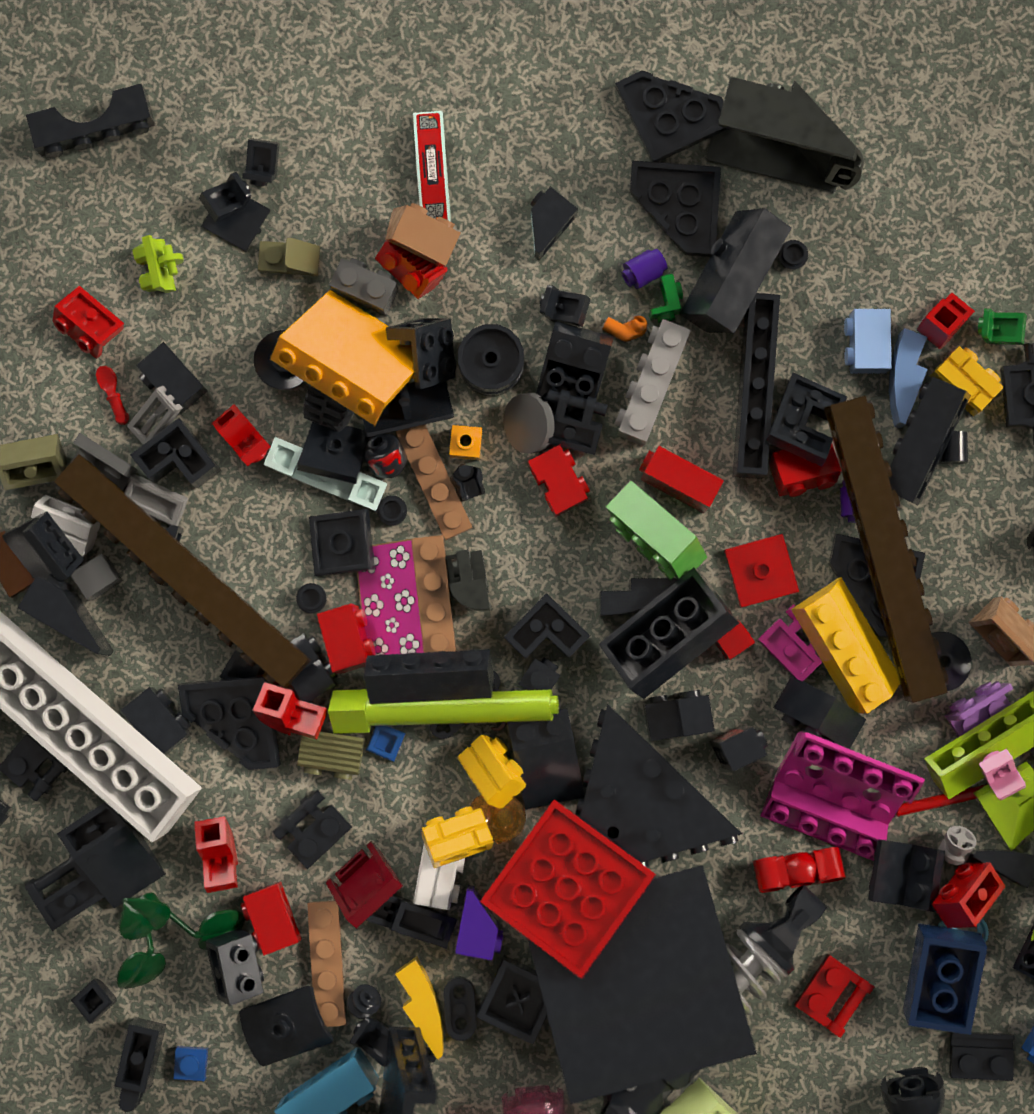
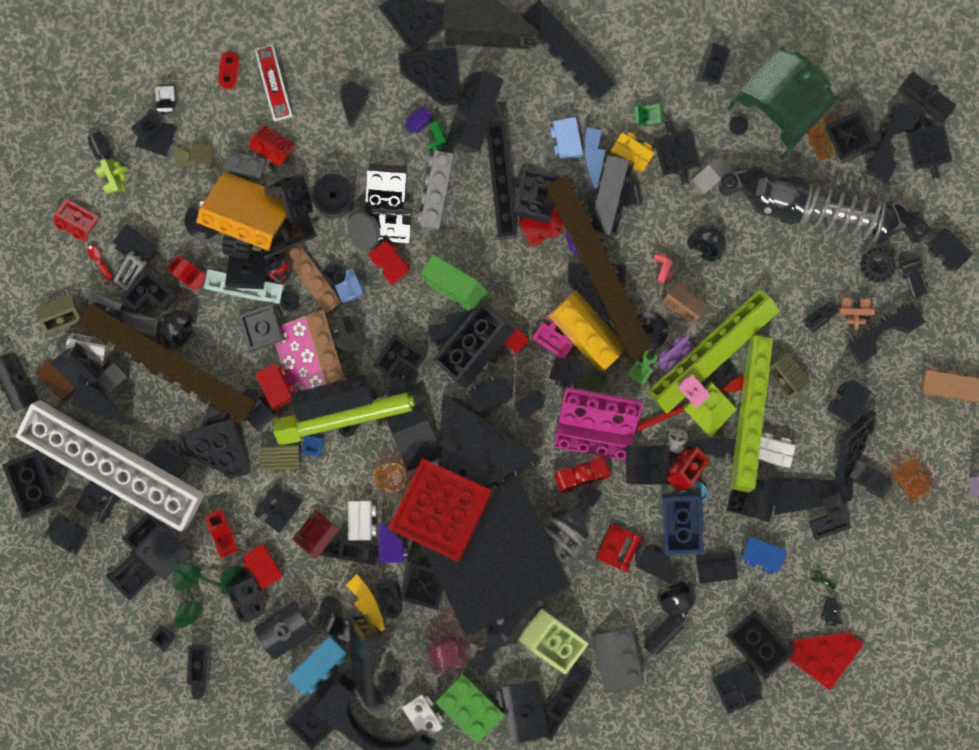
camera: 10 degrees left, 0 degrees up
(126, 113) = (75, 83): black arch -> none
(146, 215) = (99, 146): none -> black brick
(190, 1063) = (230, 665): blue plate -> none
(208, 518) = (176, 327): none -> black cylinder
(285, 713) = (245, 438): red brick -> none
(311, 598) = (249, 365): black plate -> none
(327, 961) = (302, 586): medium nougat plate -> none
(367, 137) = (228, 70): none -> red plate
(422, 234) = (275, 127): medium nougat slope -> none
(456, 837) = (367, 493): yellow brick -> none
(465, 452) = (330, 256): light orange plate -> none
(491, 508) = (350, 288): none -> medium blue brick
(492, 771) = (381, 449): yellow brick -> none
(564, 306) = (372, 153): black bracket -> none
(627, 331) = (414, 162): orange arm -> none
(680, 479) = (464, 247): red brick -> none
(761, 570) = (526, 295): red plate -> none
(793, 255) = (510, 93): black plate -> none
(885, 1031) = (653, 563): none -> black slope
(901, 213) = (569, 52): none -> black brick
(919, 722) = (641, 370): none -> bright green plate
(945, 320) = (611, 117): red brick -> none
(984, 576) = (665, 273): none -> coral bracket

